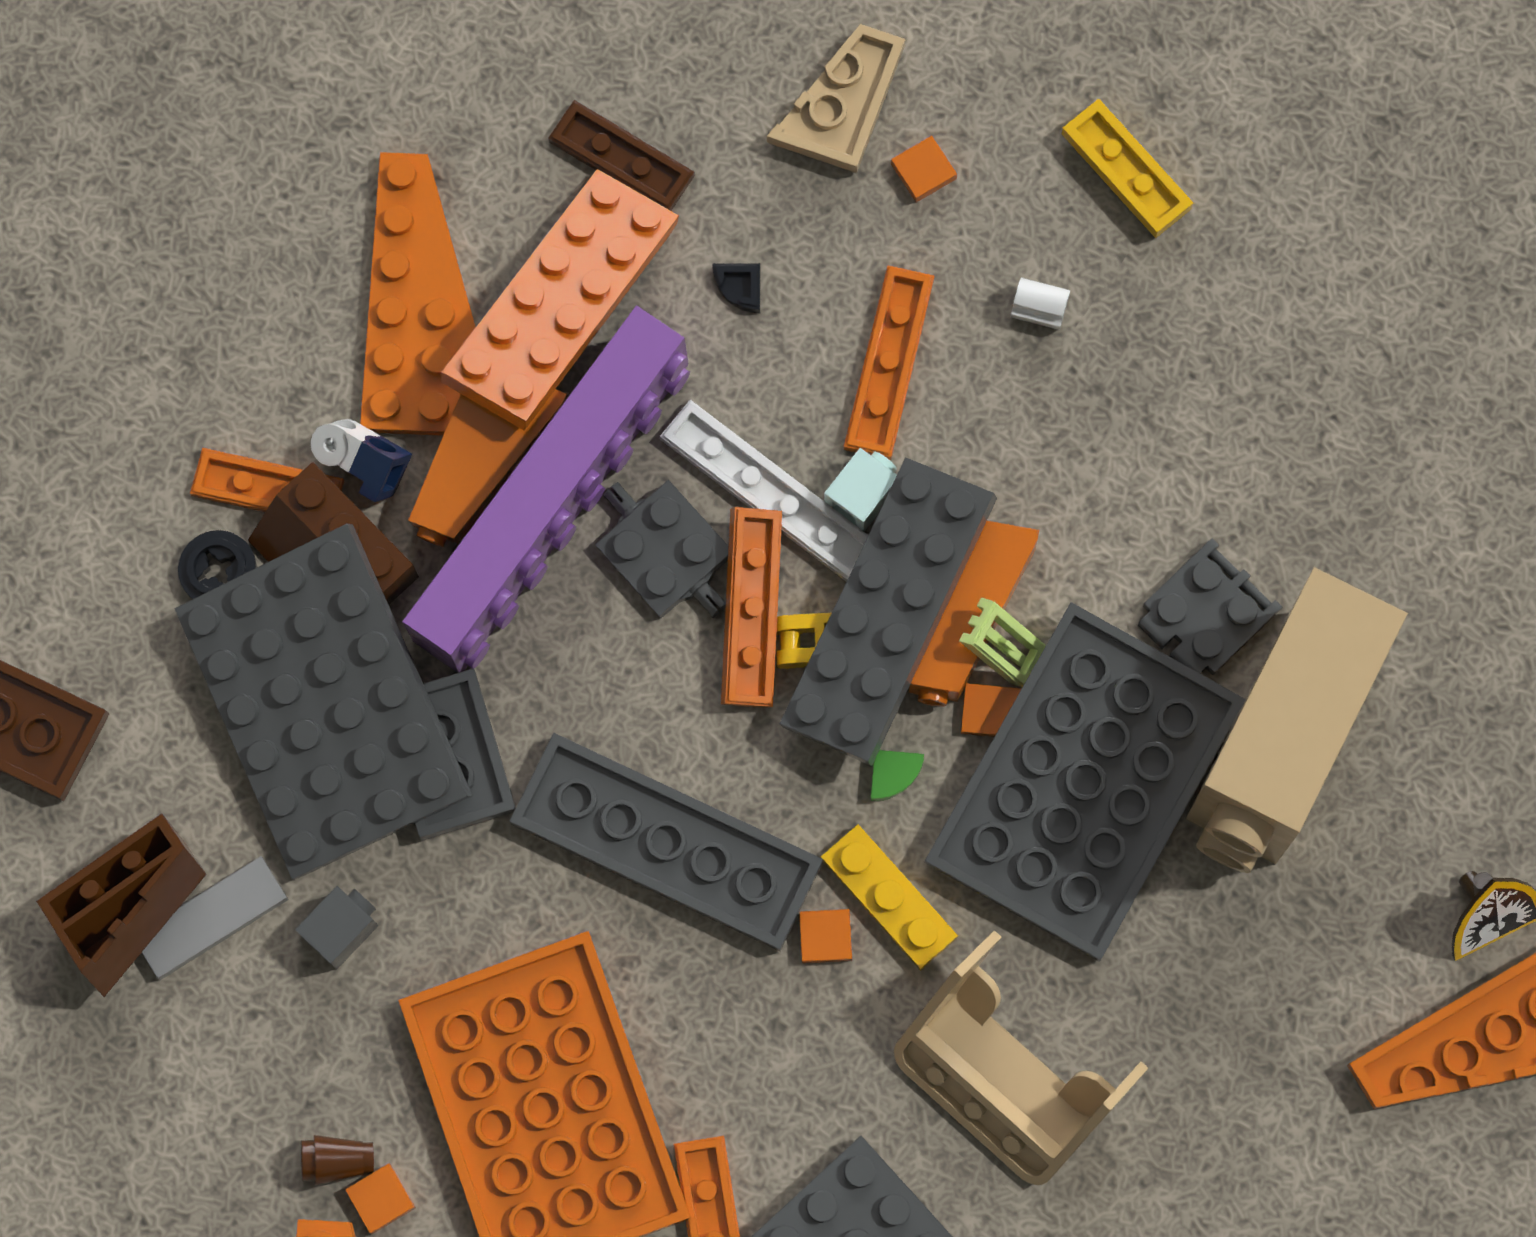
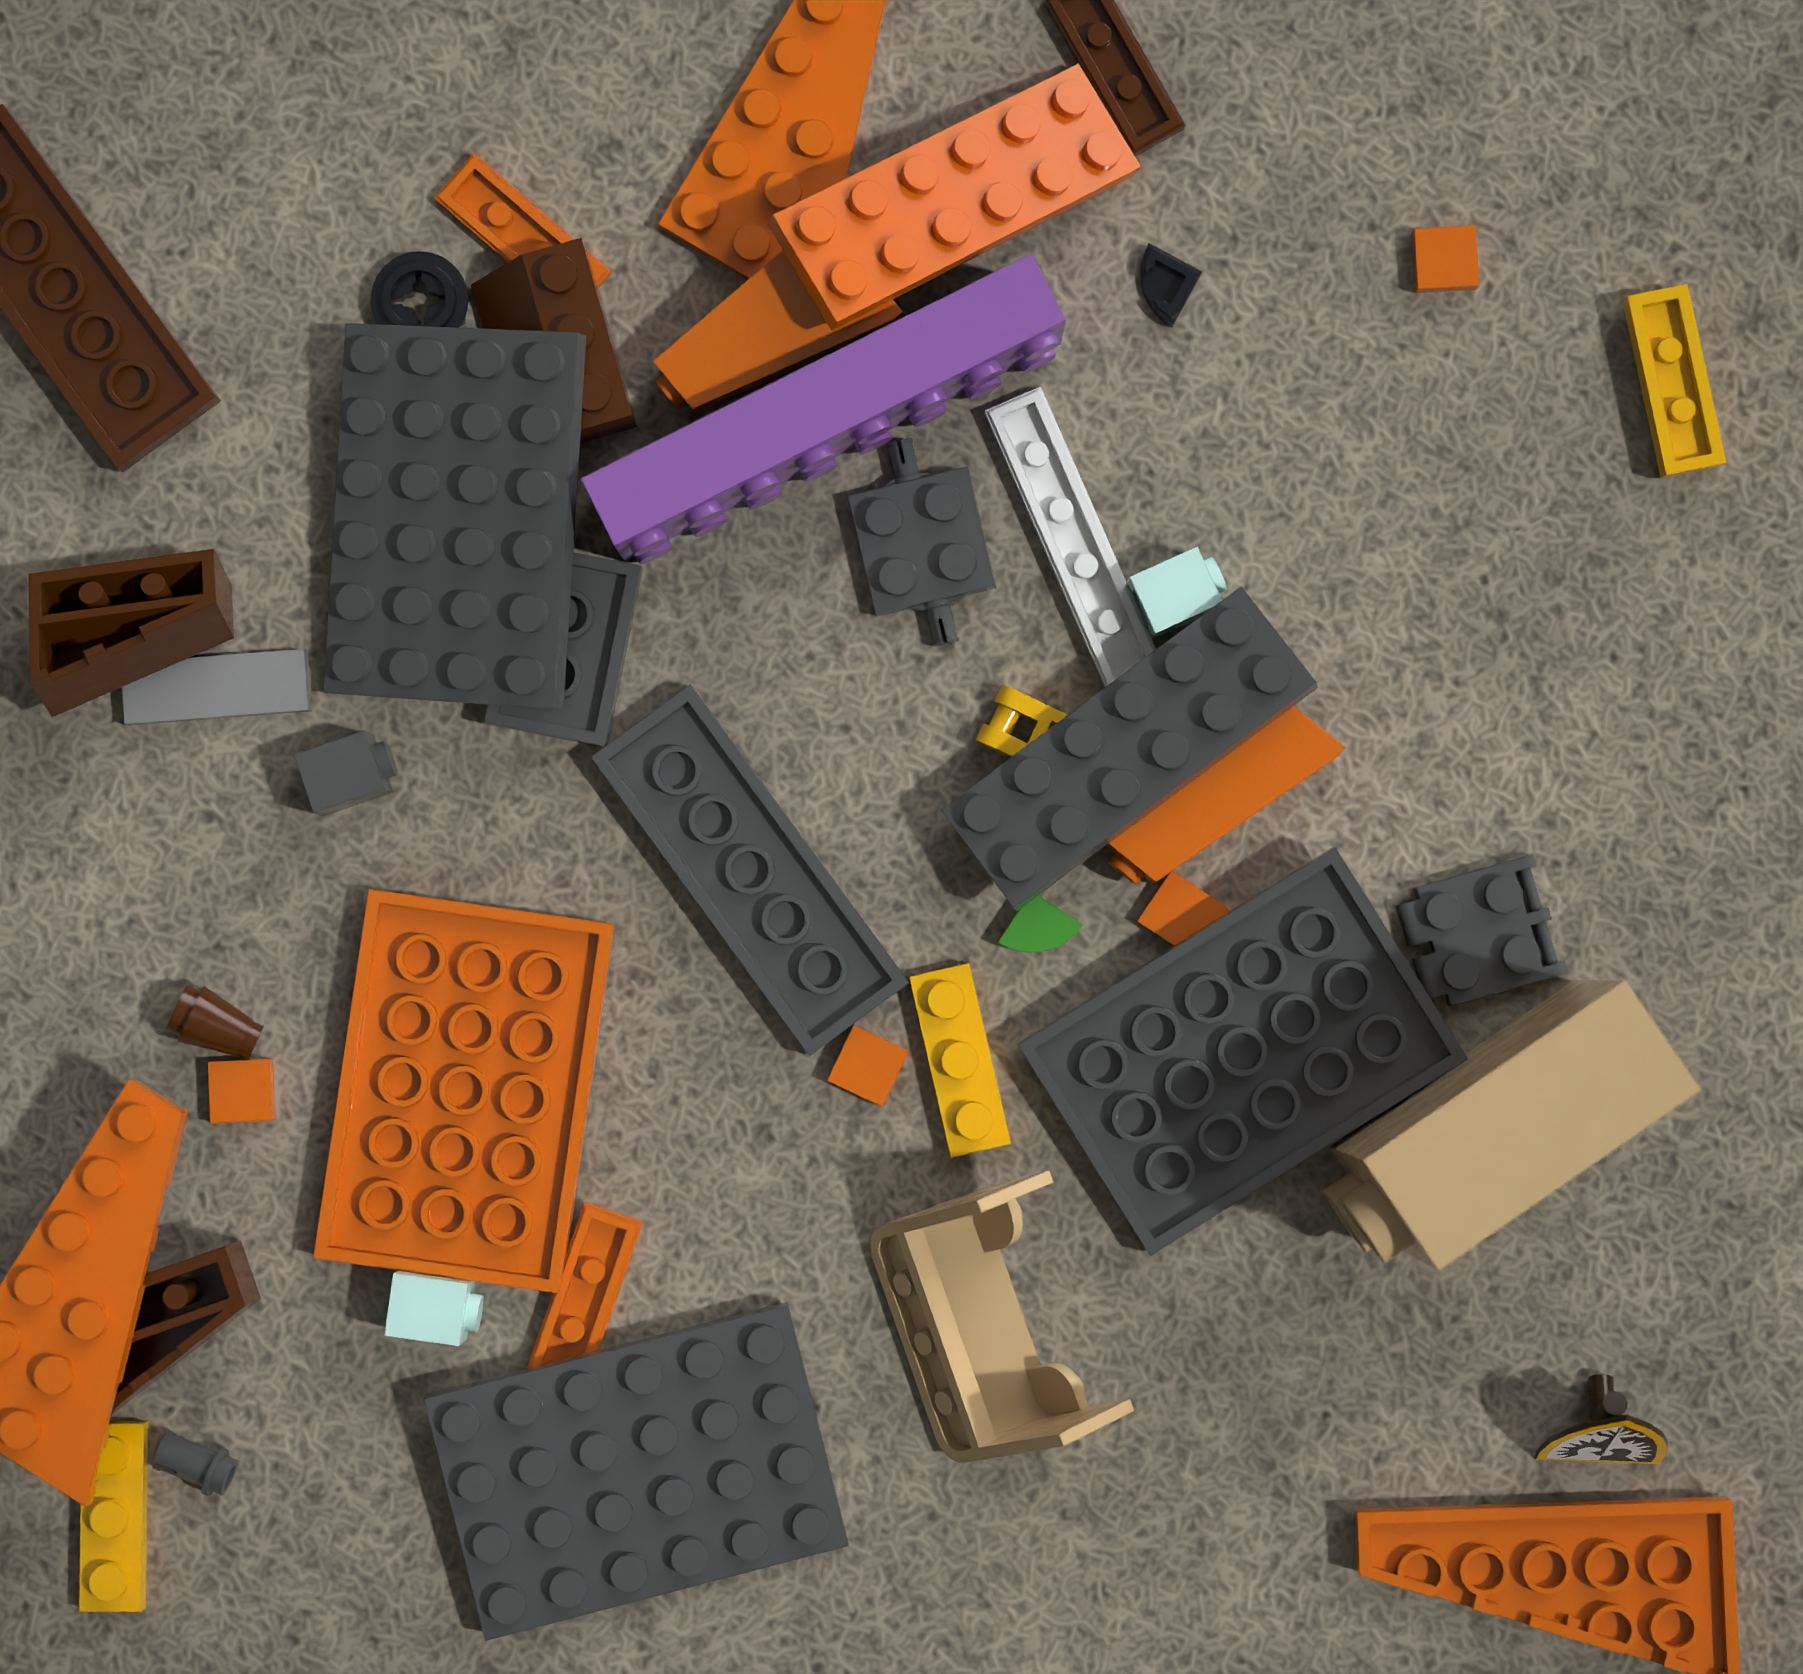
camera: 30 degrees right, 10 degrees up
(363, 455) = (643, 257): leg -> none
(751, 607) = (981, 660): orange tile -> none
(843, 104) = (1391, 138): tan wing -> none
(889, 361) = (1285, 461): orange tile -> none
(982, 629) = (1221, 828): yellowish green tile -> none
(1040, 303) = (1490, 486): white piece -> none

